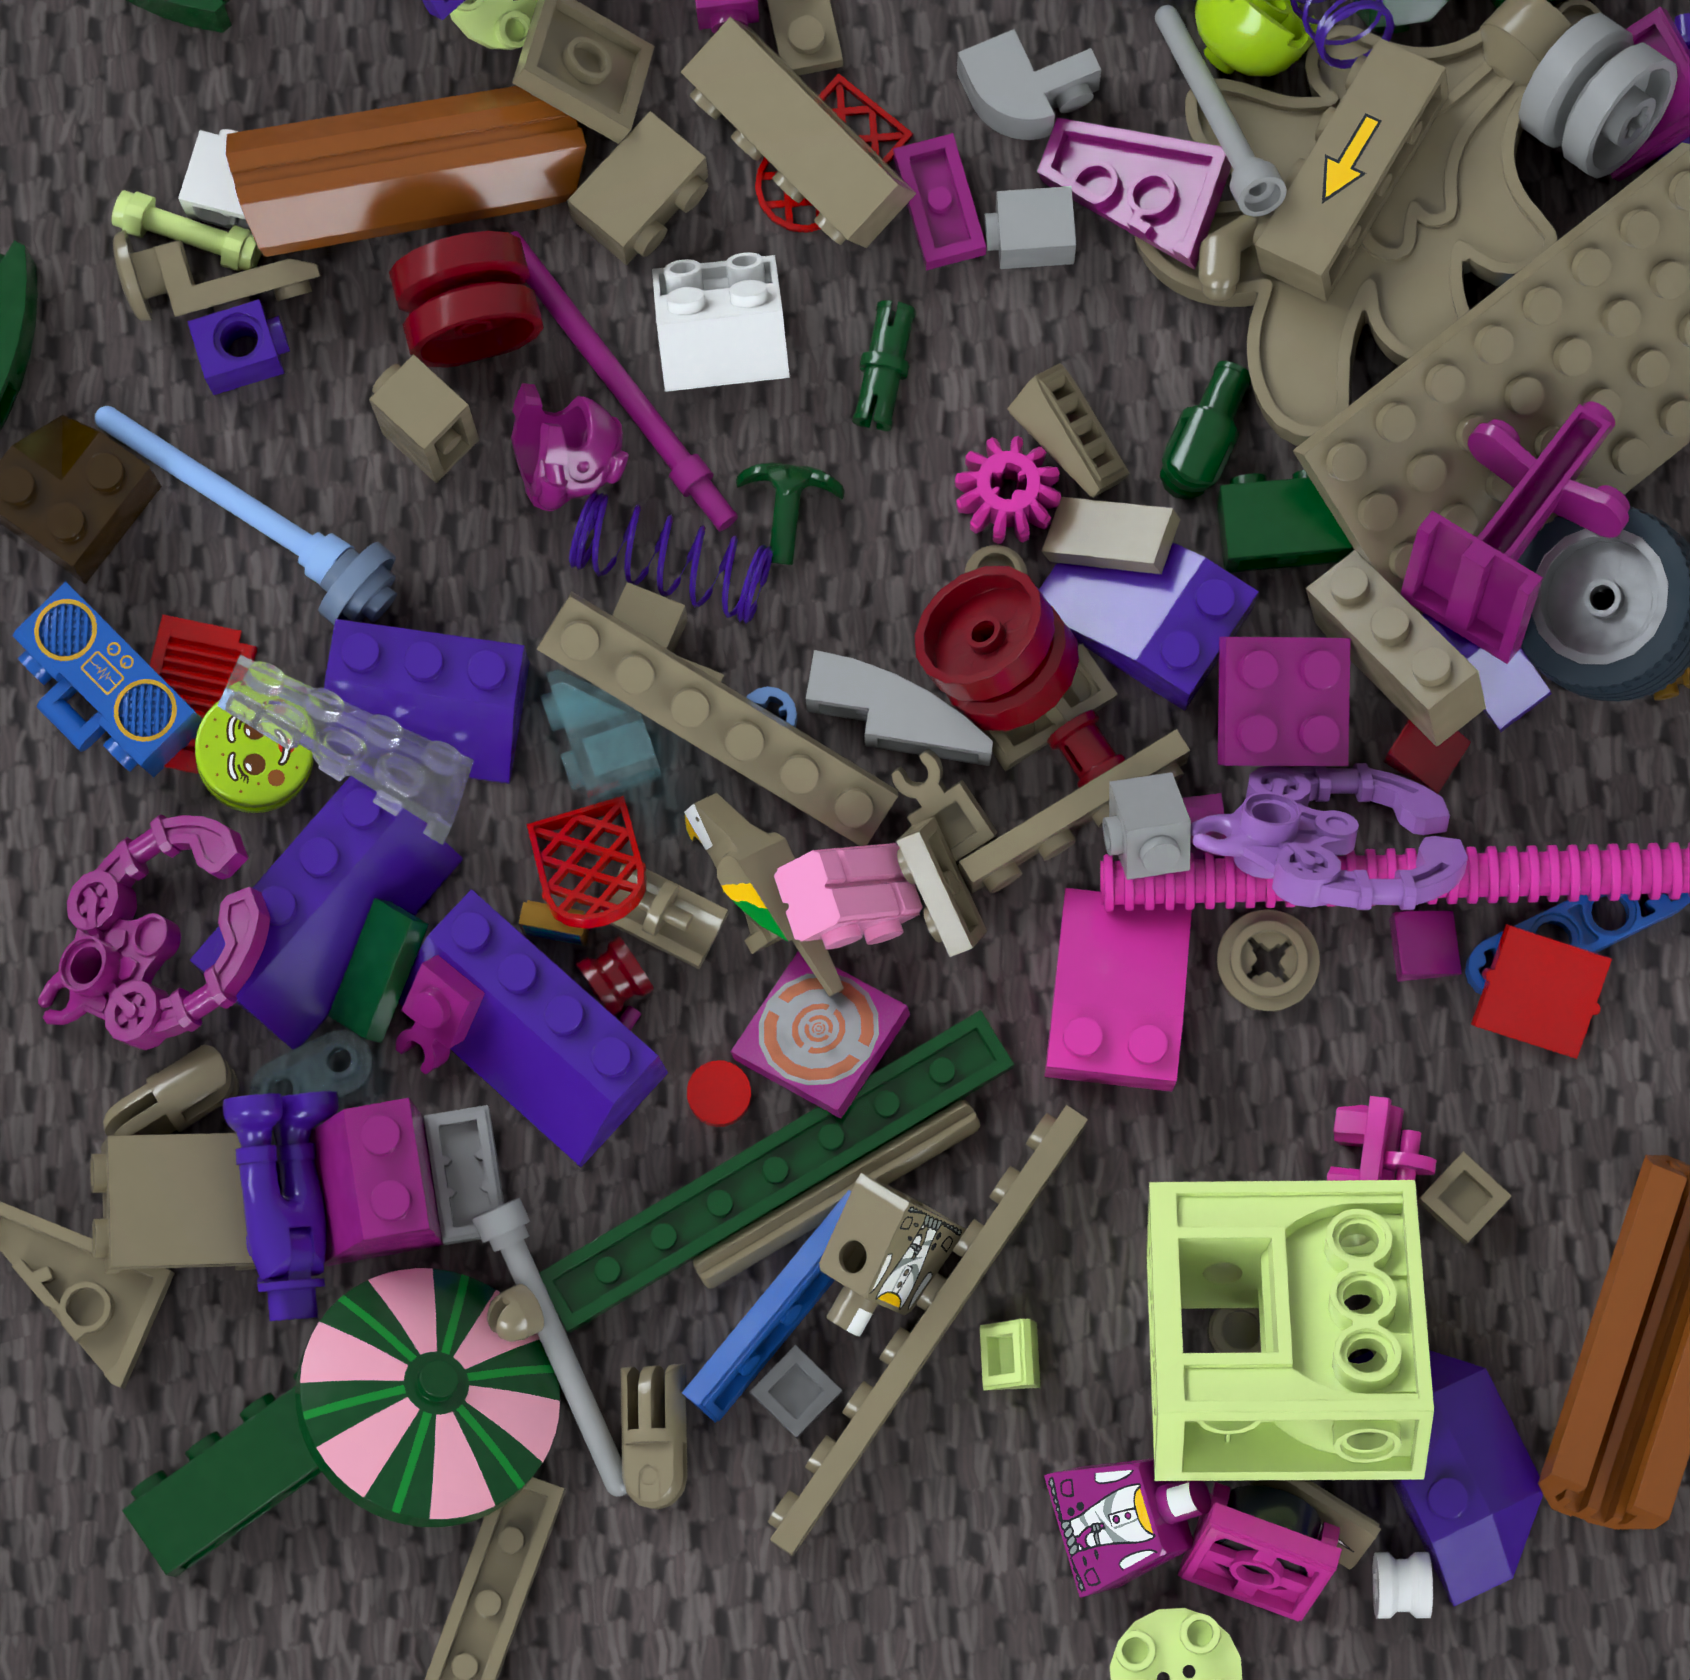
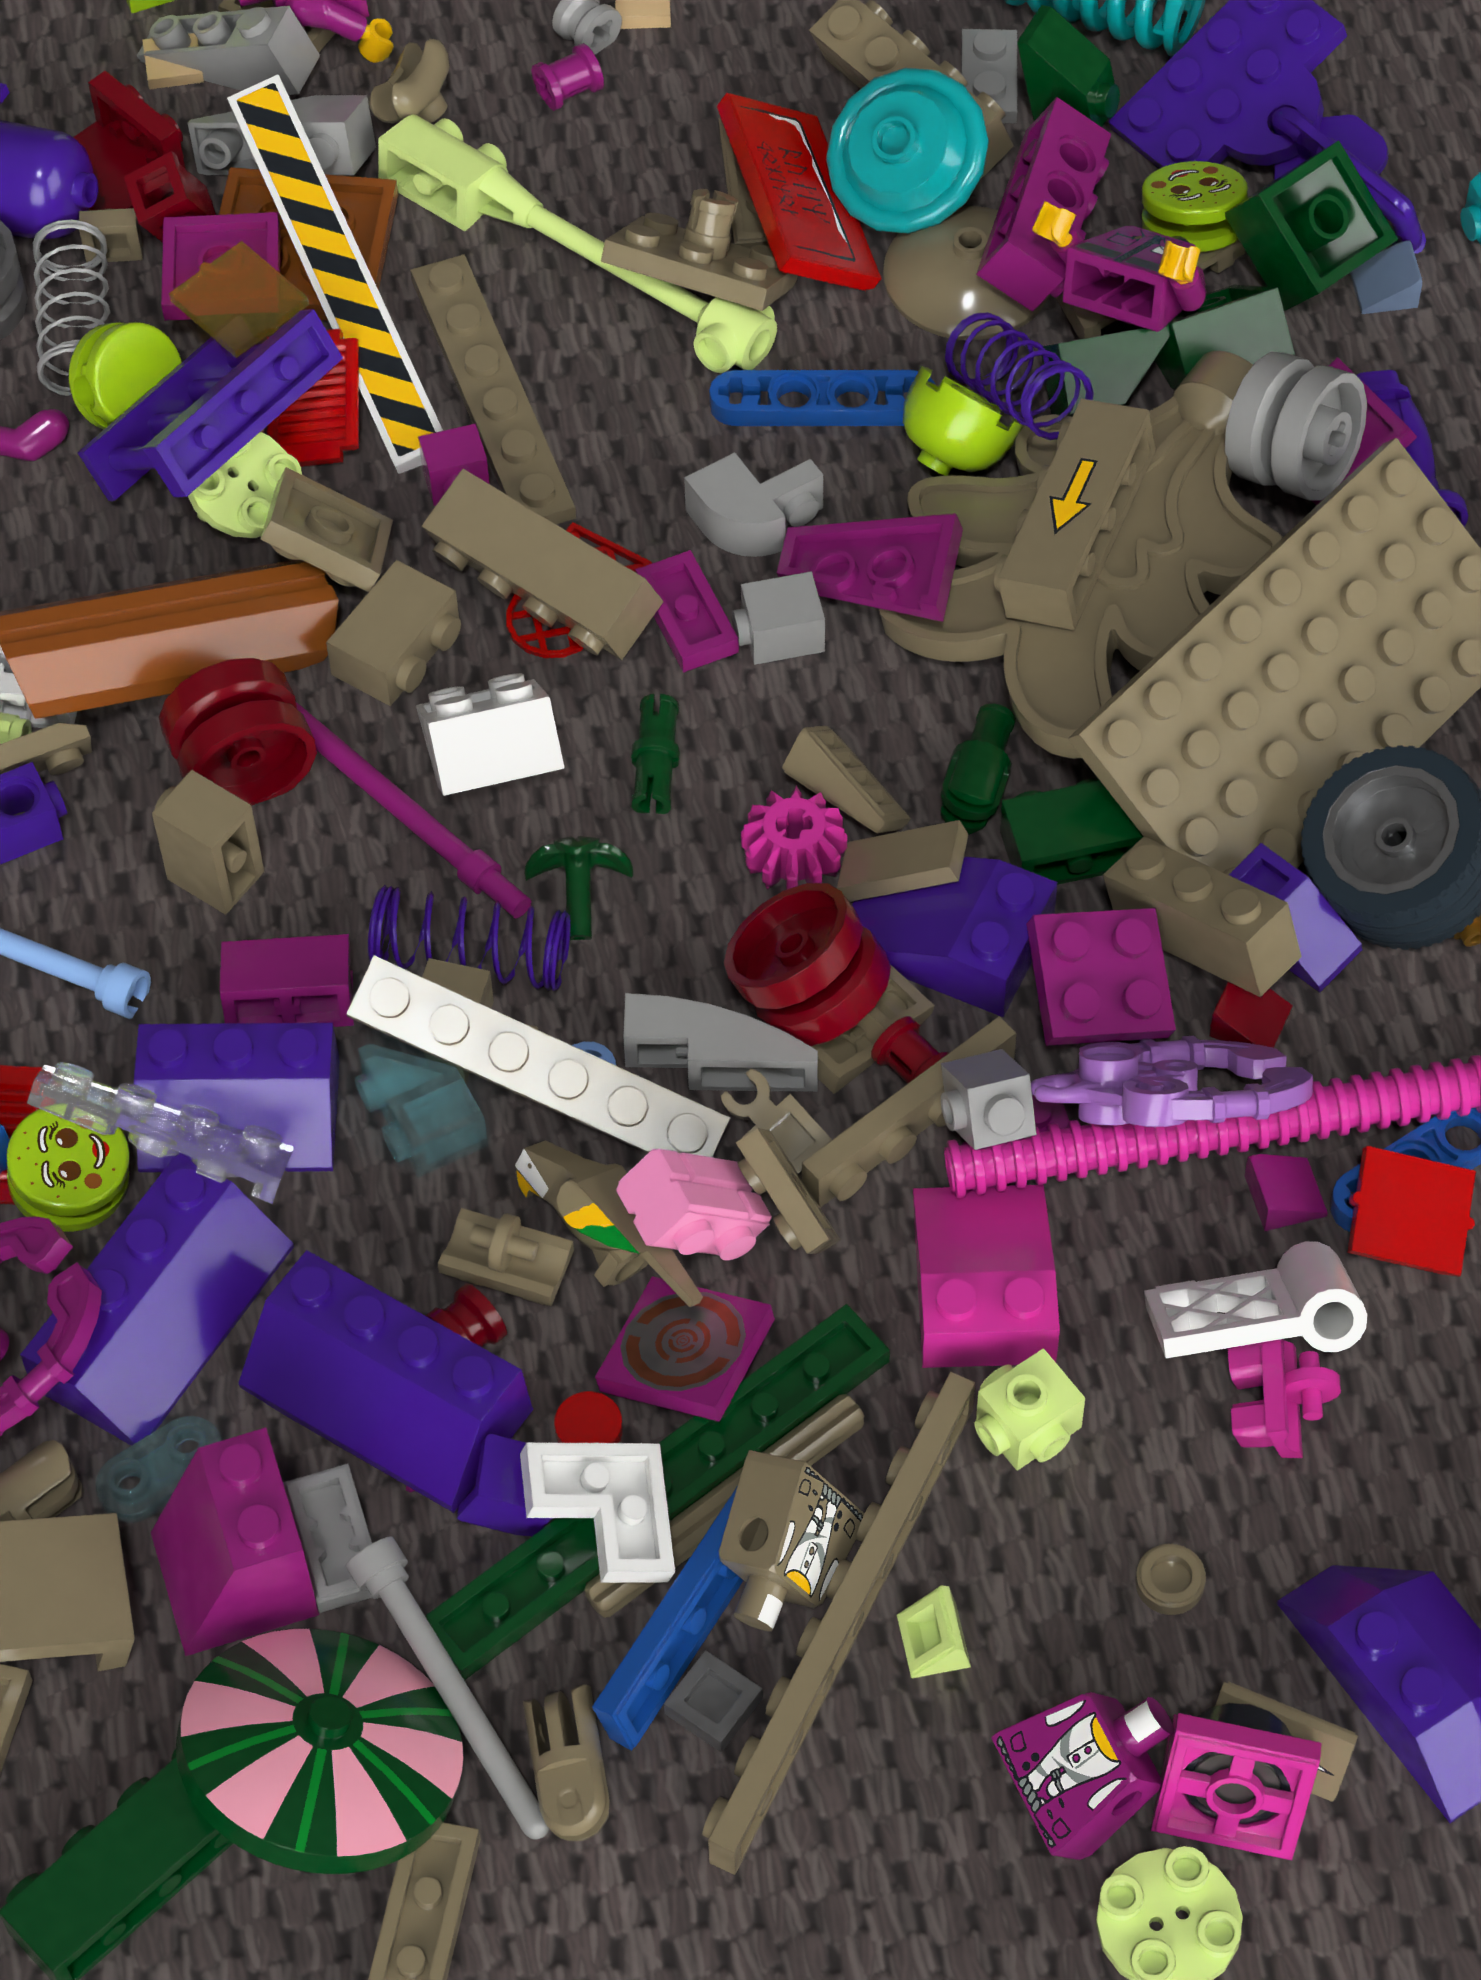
camera: 10 degrees left, 20 degrees down
(288, 1214) = (140, 1559): dark purple piece -> none
(359, 585) = (158, 996): sand blue plate -> none
(378, 970) = (218, 1348): dark green tile -> none
(443, 1011) = (290, 1372): magenta plate -> none
(486, 577) = (287, 980): none -> magenta hinge
(515, 1314) = (404, 1653): dark tan hinge -> none
(539, 922) = (401, 1279): pearl gold tile -> none
(566, 450) = (352, 857): magenta helmet -> none
(568, 822) = (427, 1187): red window -> none
(640, 1156) = (499, 1491): none -> dark purple panel
(736, 1183) = (615, 1486): none -> white plate
(1143, 1127) = (1028, 1410): none -> yellowish green brick
(1221, 257) = (966, 605): dark tan arm -> none
(1254, 182) = (986, 524): light grey piece -> none
(1269, 931) = (1127, 1199): dark tan gear -> none
(1299, 1401) = (1234, 1526): yellowish green piece -> none
(1402, 1585) = (1392, 1800): white wheel -> none
(1422, 1084) = (1300, 1297): none -> white piece
(1464, 1198) = (1375, 1416): dark tan plate -> none
(1476, 581) = (1277, 820): magenta piece -> none

